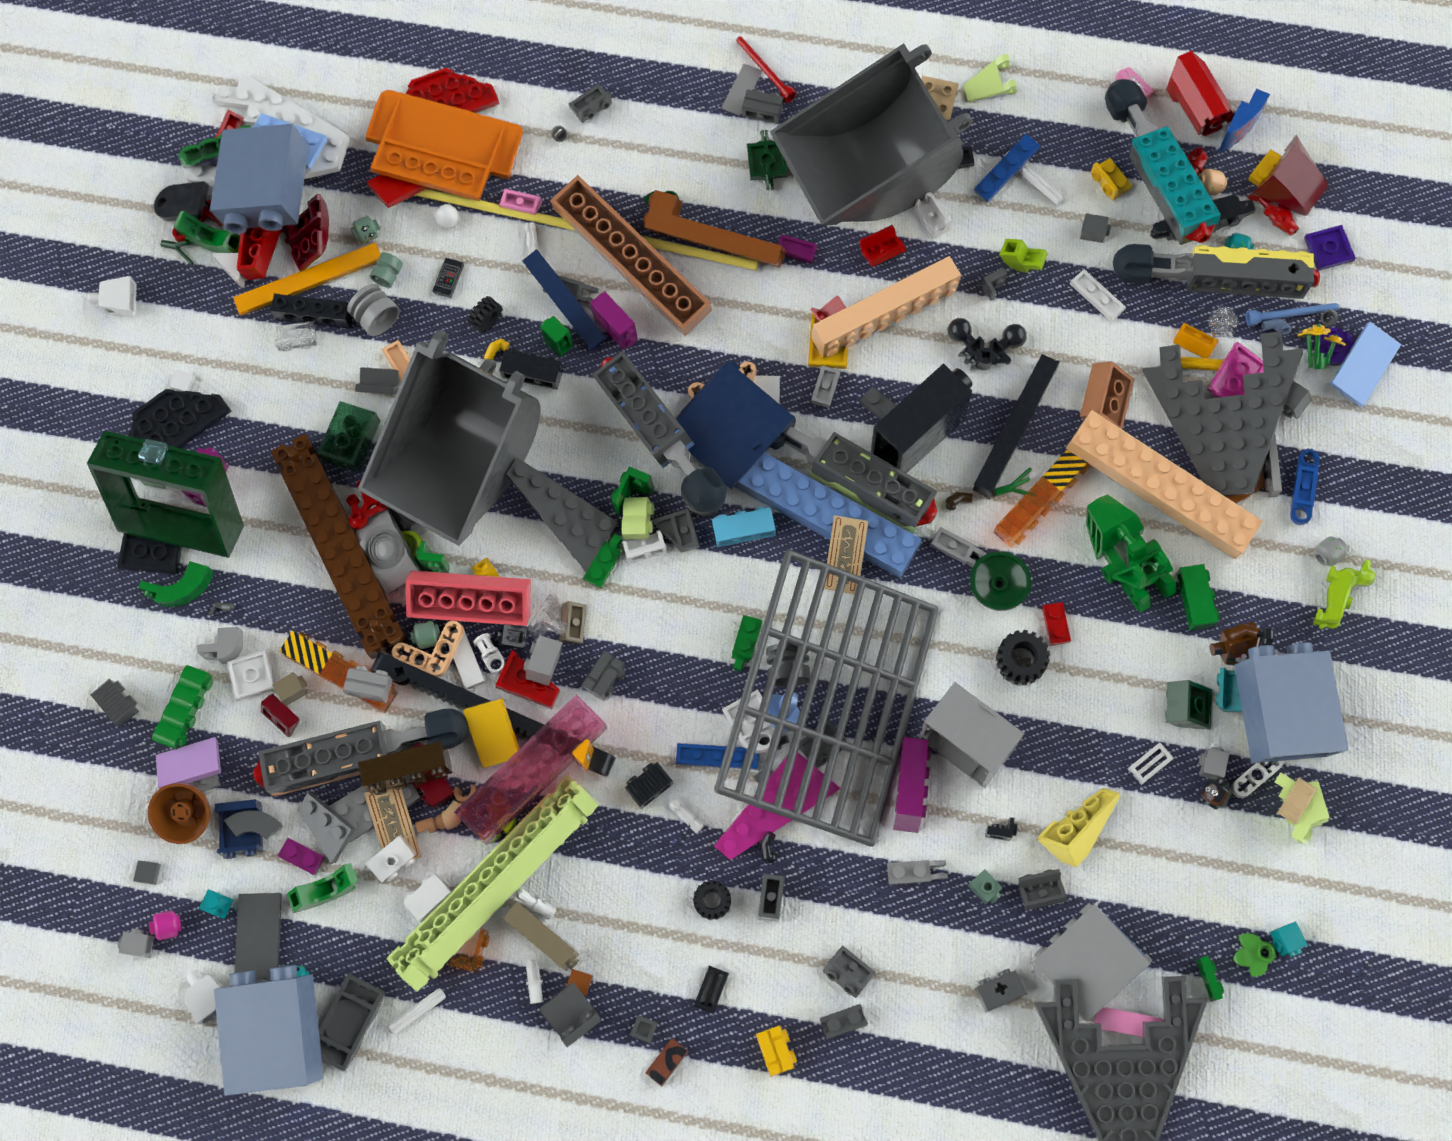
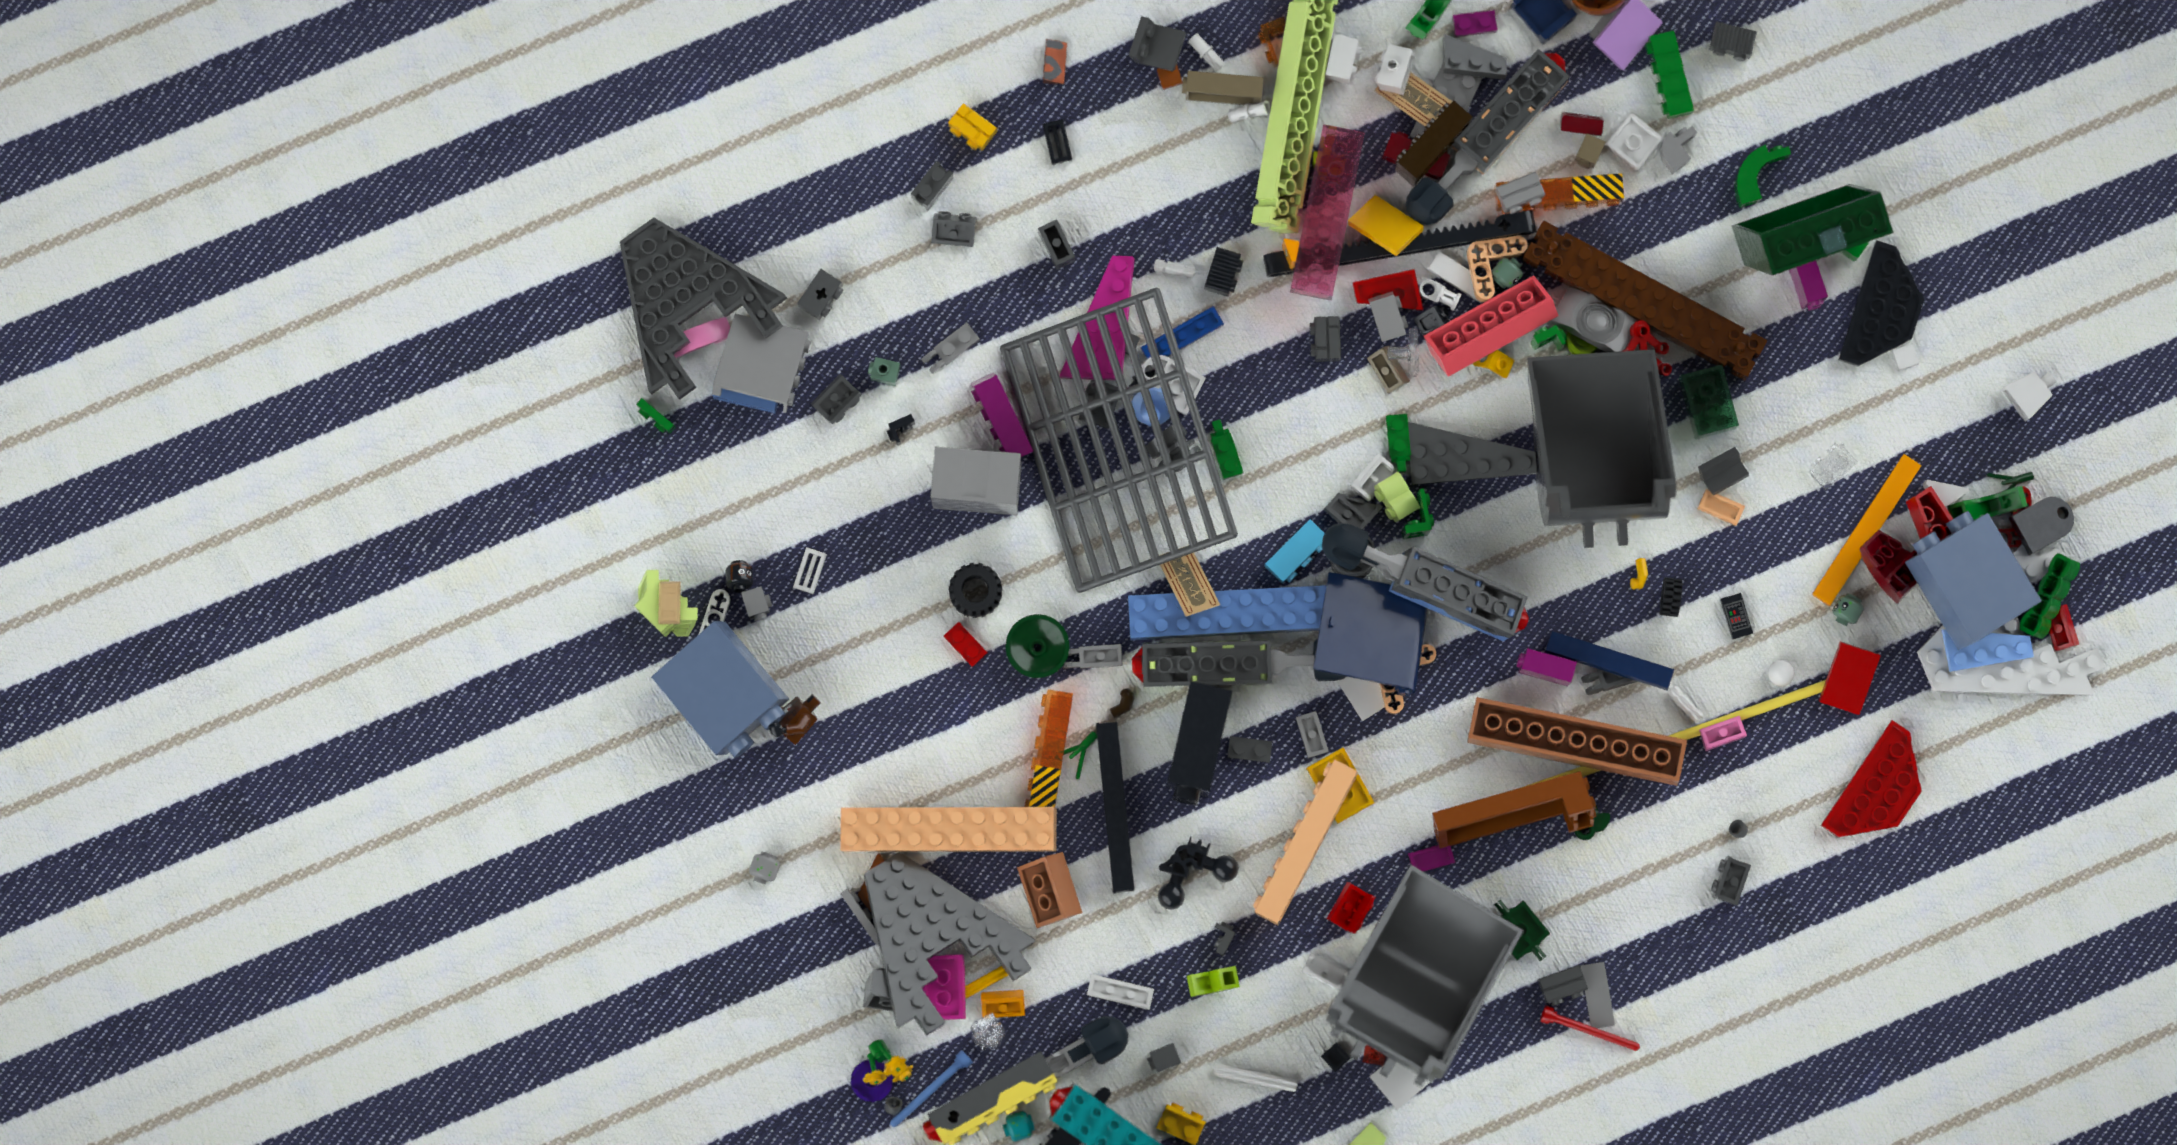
camera: 140 degrees right, 10 degrees up
(148, 555) = (1807, 182): black tile -> none
(223, 606) = (1705, 183): dark grey piece -> none
(254, 822) = (1533, 23): dark grey tile -> none
(306, 309) = (1835, 498): black brick -> none
(373, 310) = (1777, 533): light grey wheel -> none
(386, 270) = (1797, 582): sand green wheel -> none
(440, 144) = (1841, 740): orange slope -> none
(448, 818) = (1372, 138): medium nougat piece -> none
(537, 370) = (1592, 576): black brick -> none
(556, 336) = (1590, 618): green brick -> none
(644, 1029) = (1091, 75): dark grey tile -> none
(721, 909) = (1109, 225): black tyre -> none
(765, 850) = (1091, 289): black arm -> none
(829, 309) = (1355, 806): bracket -> none
(943, 94) = (1401, 1101): tan bracket -> none
(1007, 168) = (1285, 1067): blue plate -> none
(1077, 833) = (836, 468): light yellow wedge -> none
(1109, 523) = (969, 762): green piece -> none
(1188, 705) = (807, 642): slope -> none
(1197, 597) = (856, 747): green brick -> none
(1228, 696) = (780, 671): teal bracket -> none
(1251, 956) = (632, 460): bright green plate -> none
(1278, 325) = (936, 1068): sand blue arm -> none
(1288, 939) = (609, 490): teal brick -> none
(1305, 486) = (821, 917): blue plate -> none
(1339, 591) = (735, 830): lime animal -> none
(1365, 364) = (834, 1076): light blue tile -> none

